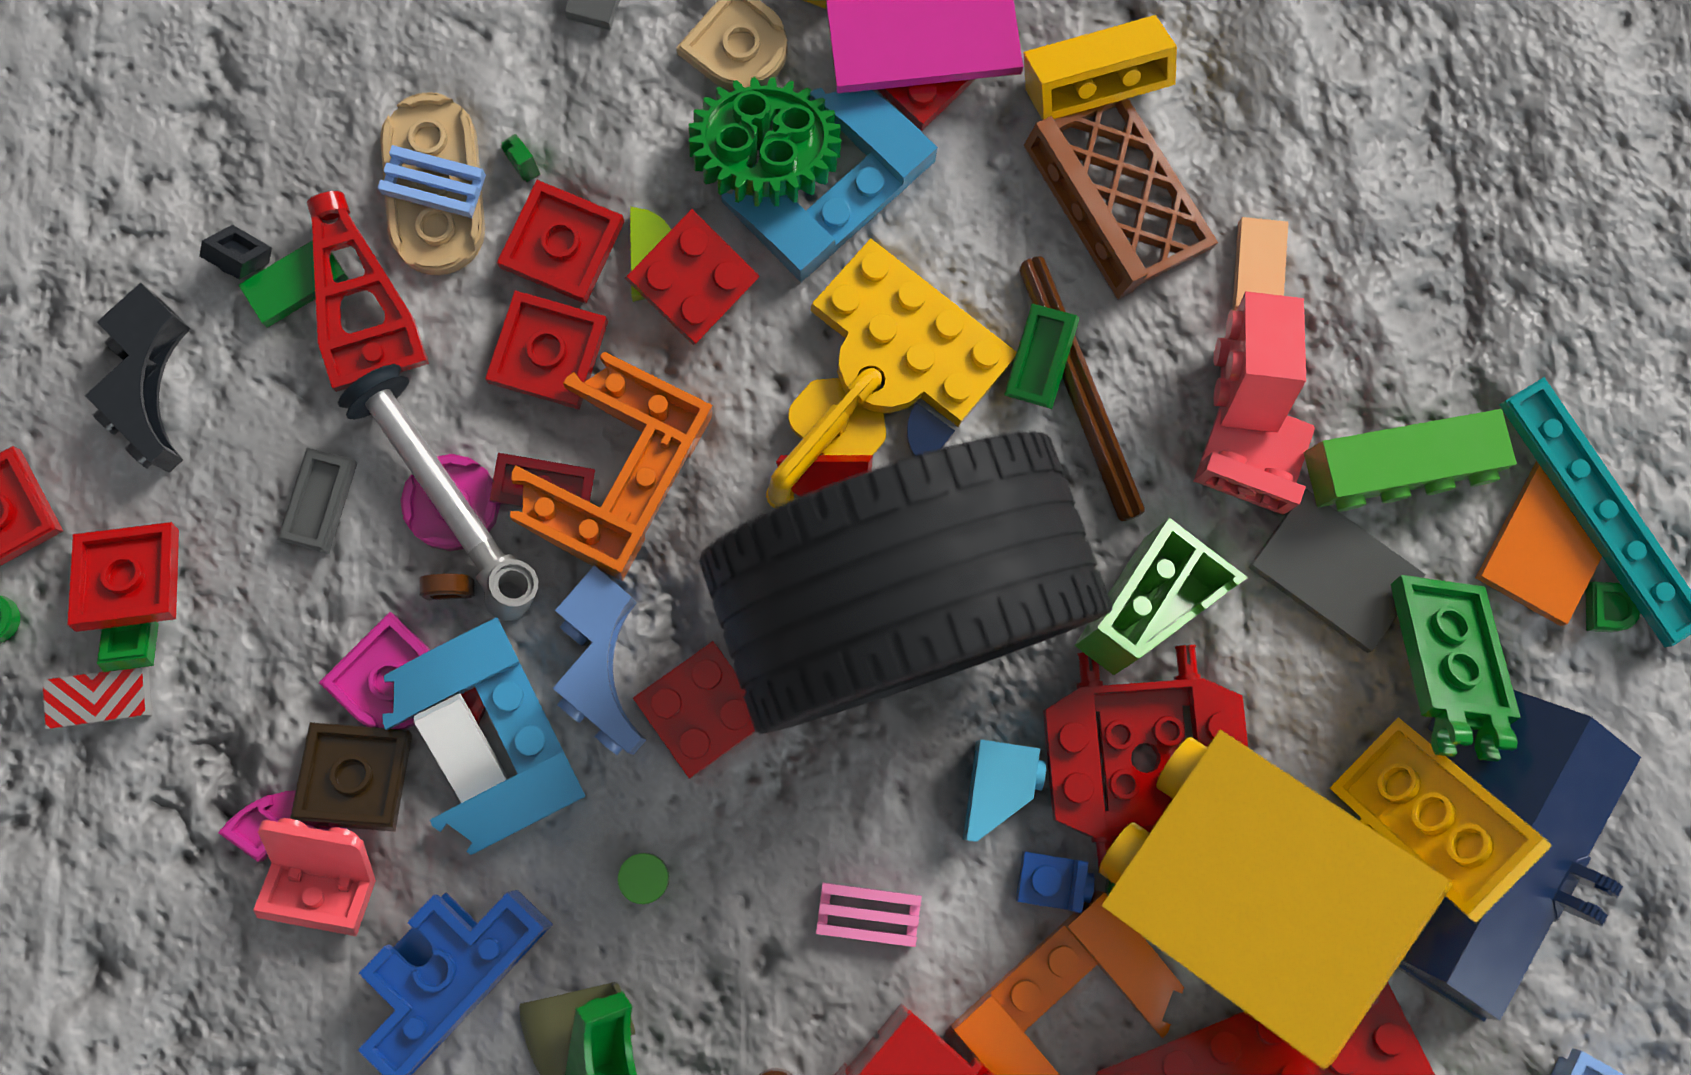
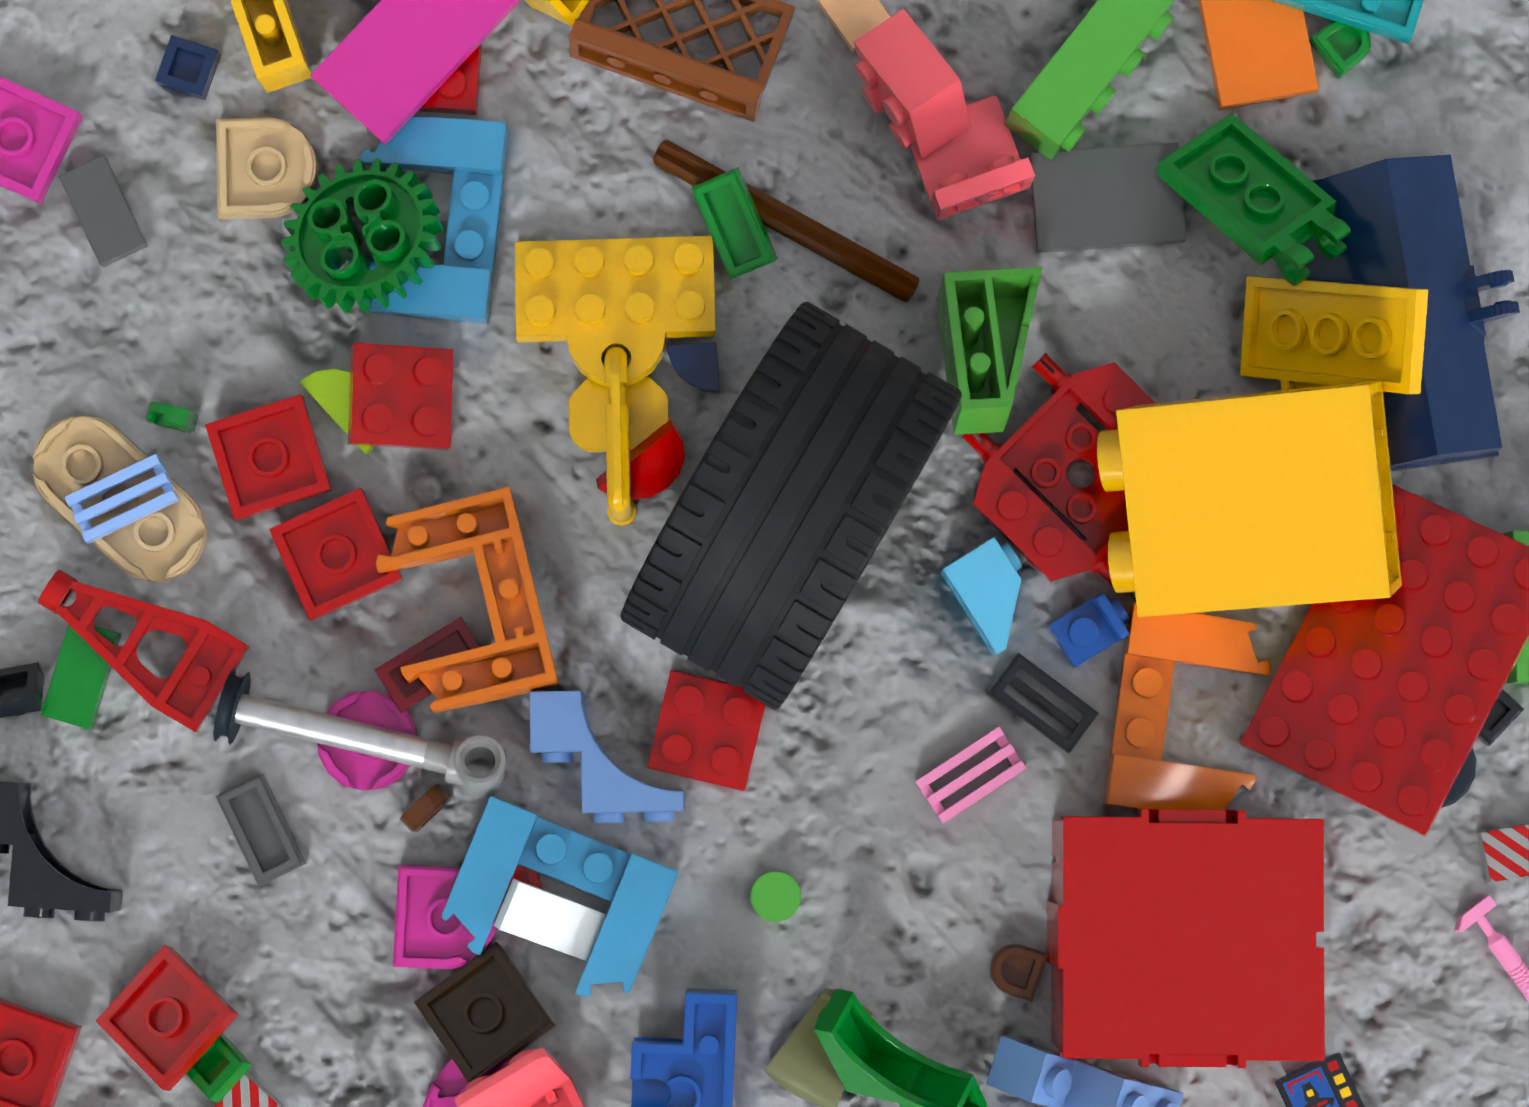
camera: 35 degrees left, 5 degrees up
(960, 865) = (1009, 677): none -> black tile

